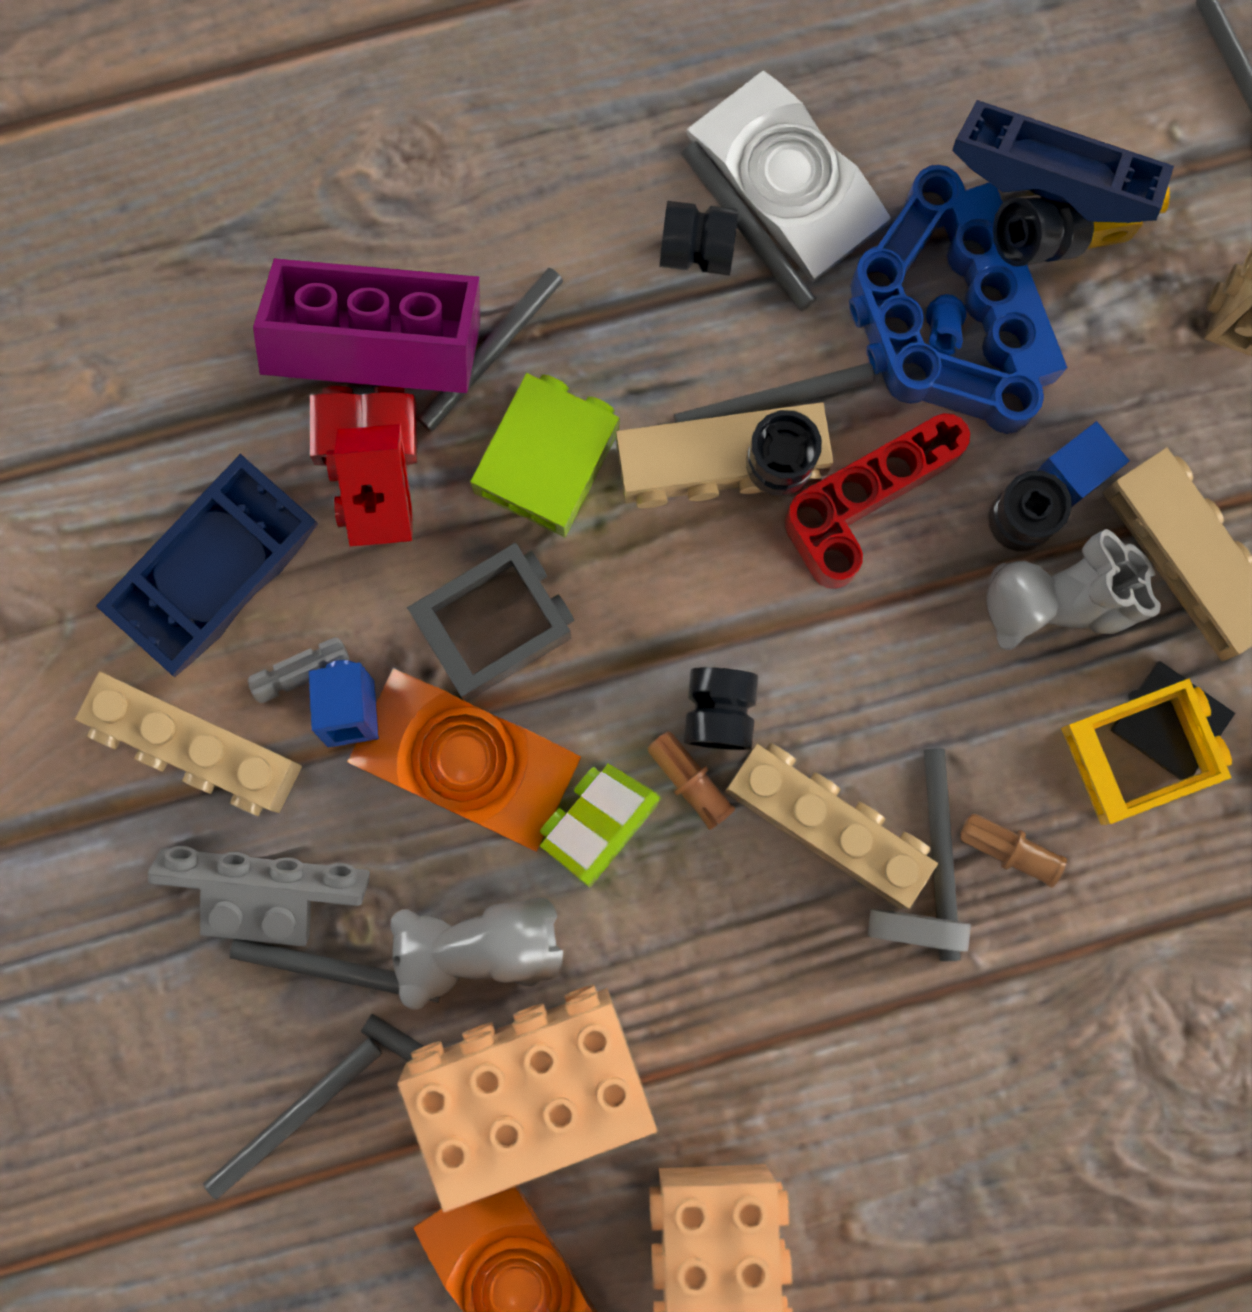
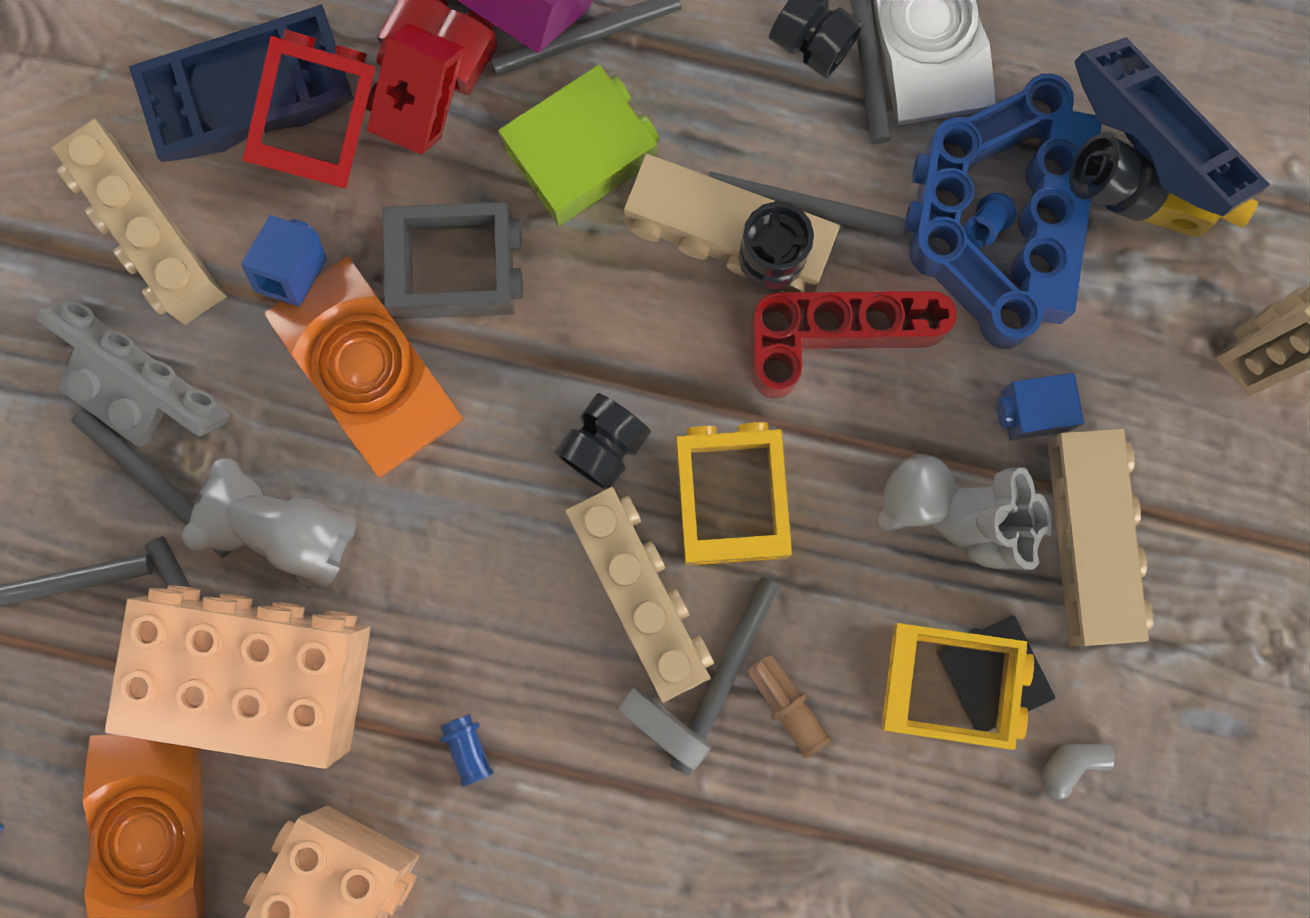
camera: 30 degrees right, 0 degrees up
(294, 670) = (255, 211): light grey axle -> none
(303, 611) = (292, 162): none -> red window
(598, 823) = (437, 483): slope -> none
(690, 780) = (543, 489): nougat axle -> none
(755, 1048) = (466, 749): none -> blue pin
(845, 633) = (741, 549): none -> yellow window
(1030, 511) = (971, 419): black wheel -> none

